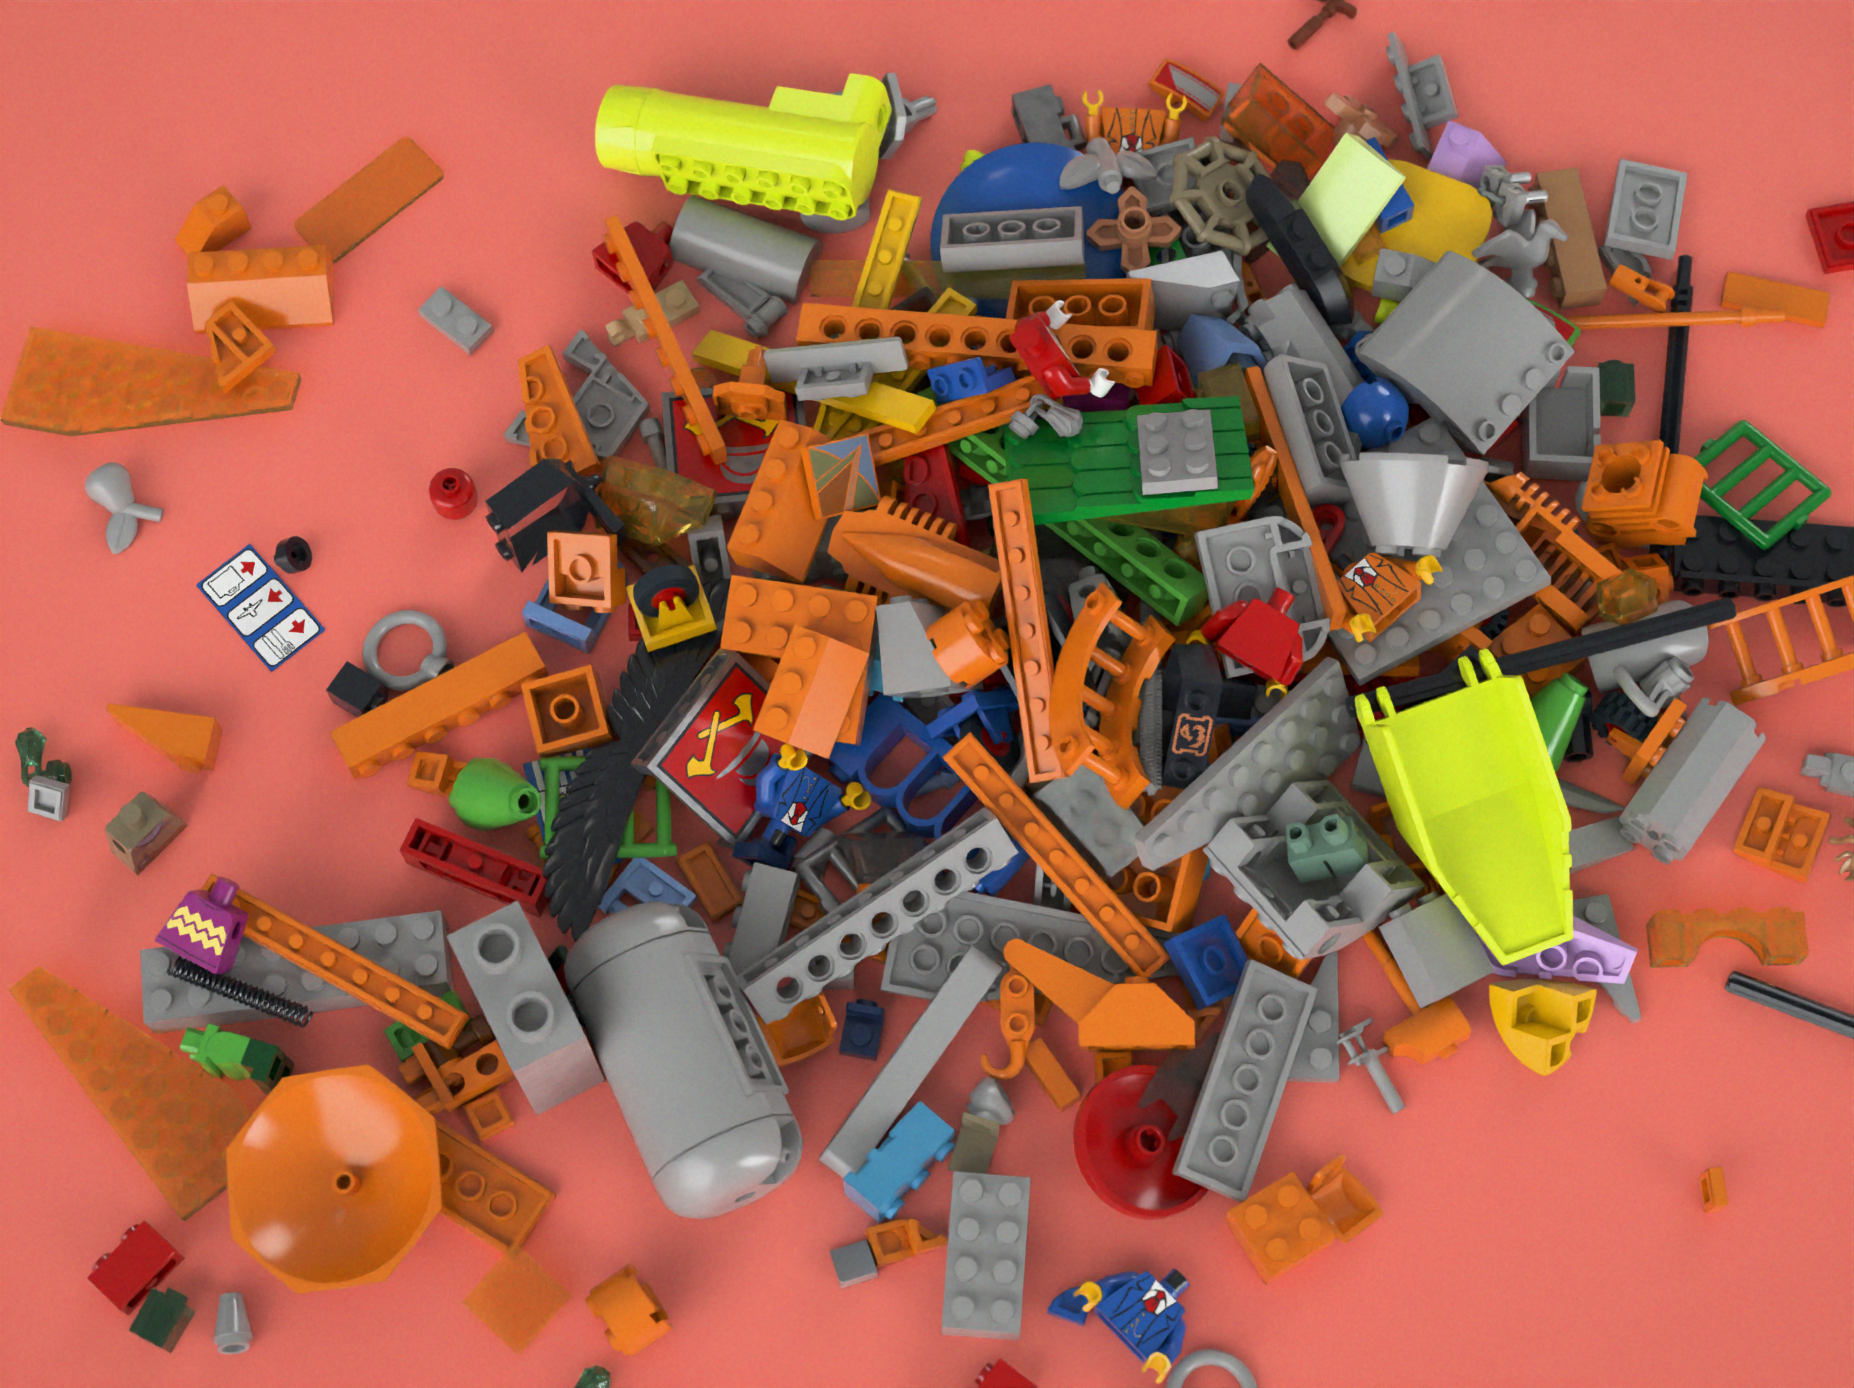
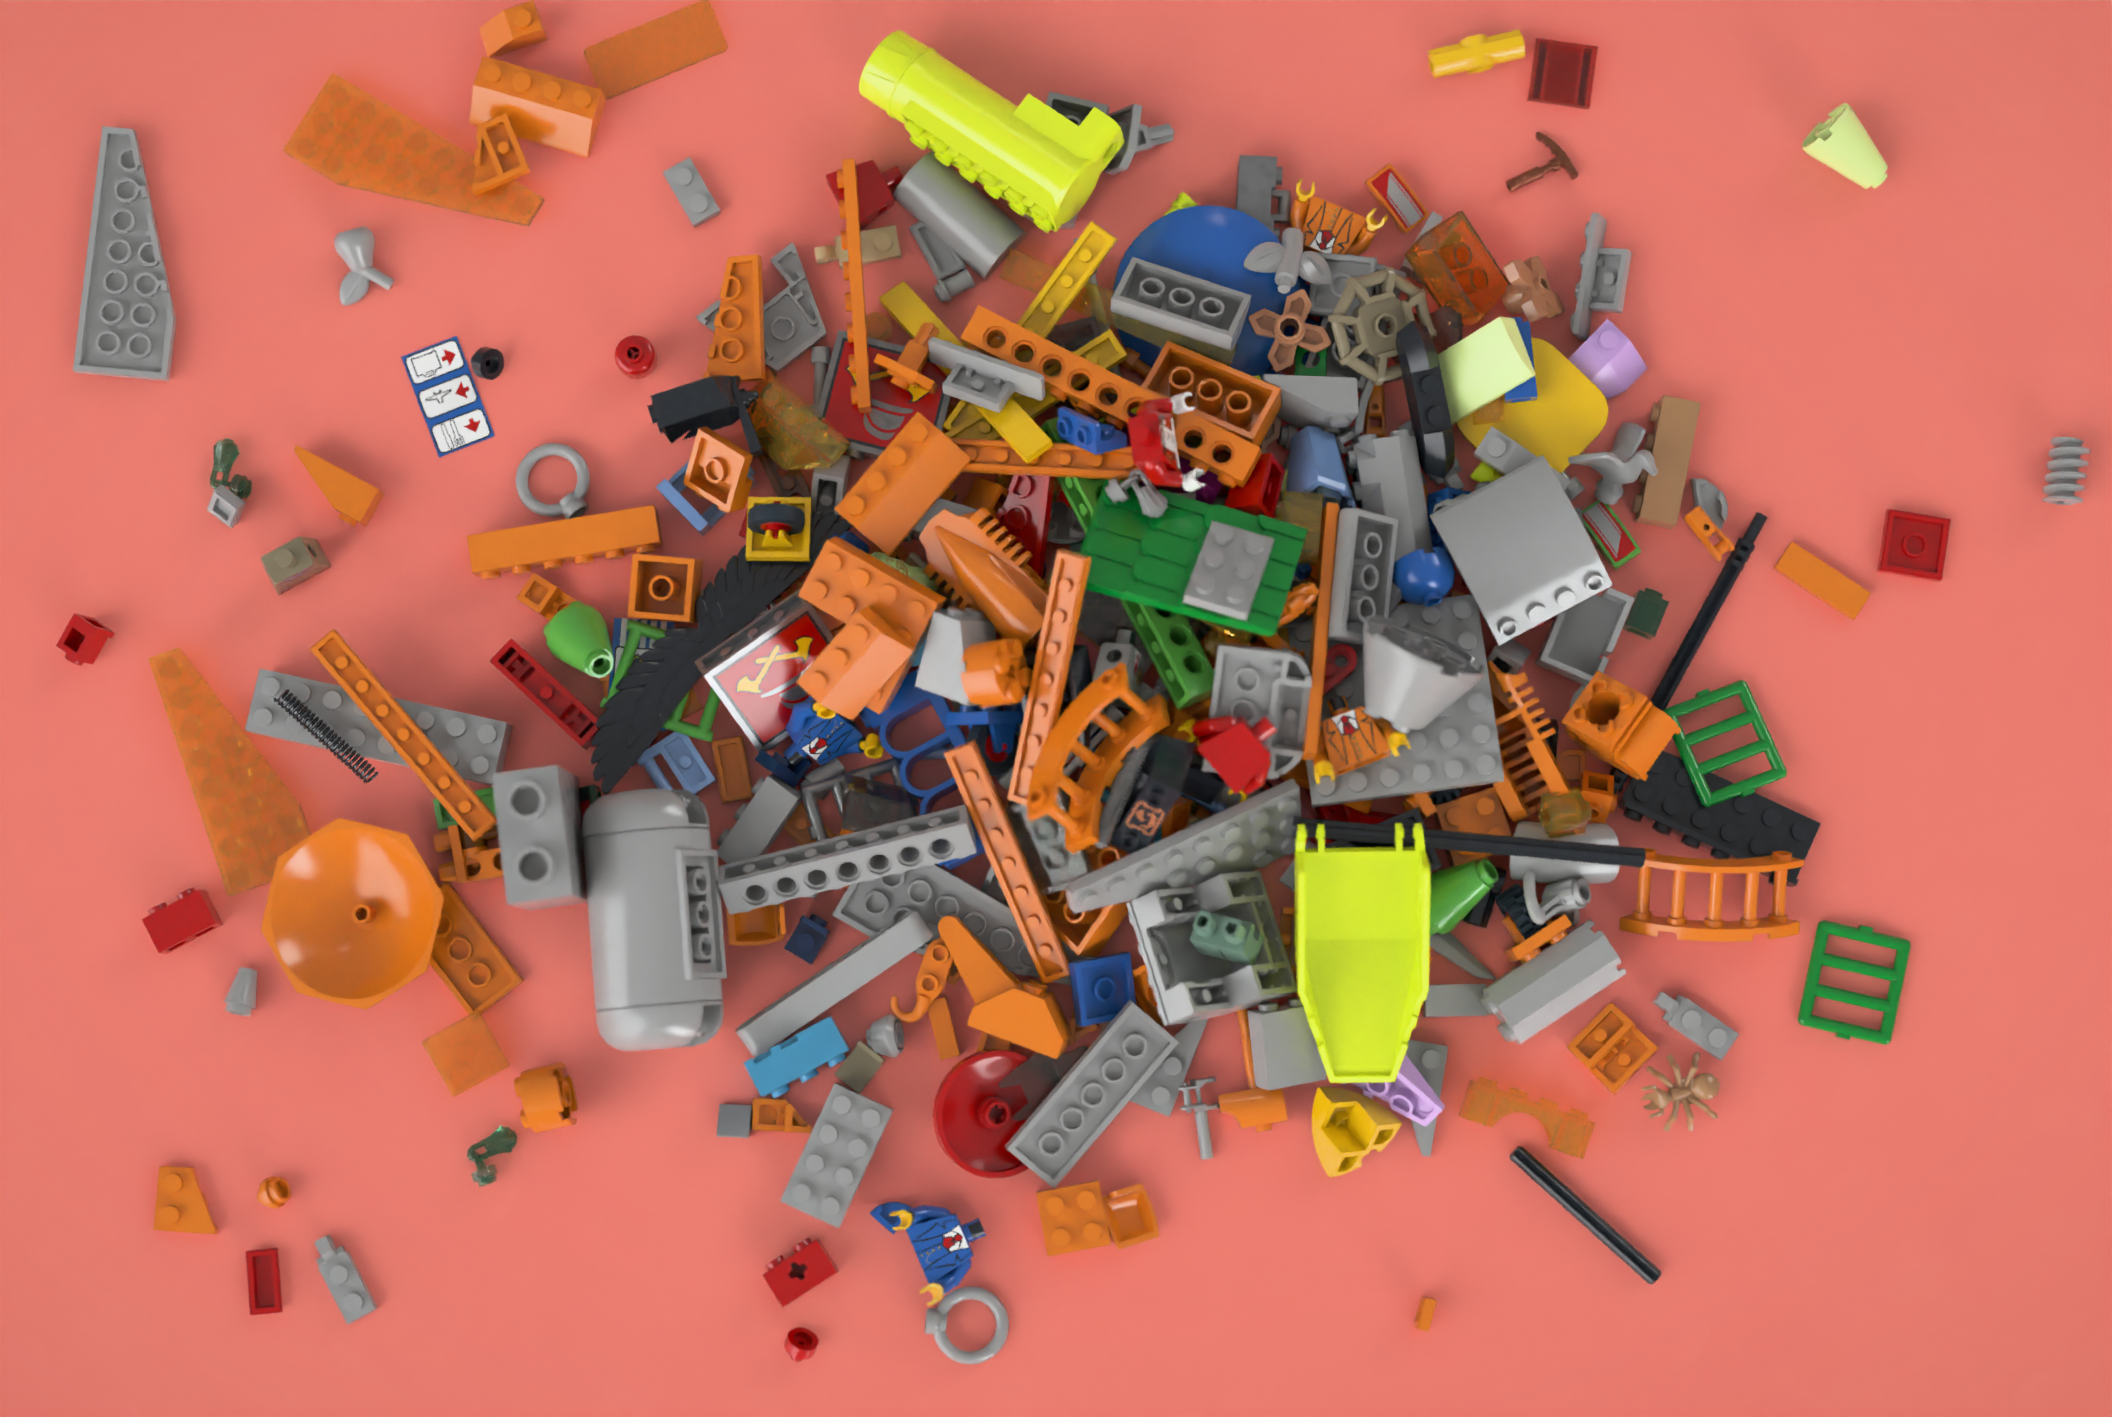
camera: 20 degrees right, 15 degrees up
(163, 1318) = (190, 970): clear green brick -> none
(207, 927) = (314, 677): magenta torso -> none
(237, 1056) = (299, 777): hips -> none
(356, 690) = (502, 505): black brick -> none
(489, 1115) = (491, 898): orange tile -> none
(841, 476) = (951, 478): tile -> none
(1507, 194) = (1624, 413): light grey piece -> none
(1645, 209) = (1746, 459): light grey plate -> none
(1746, 317) = (1783, 595): orange bar -> none

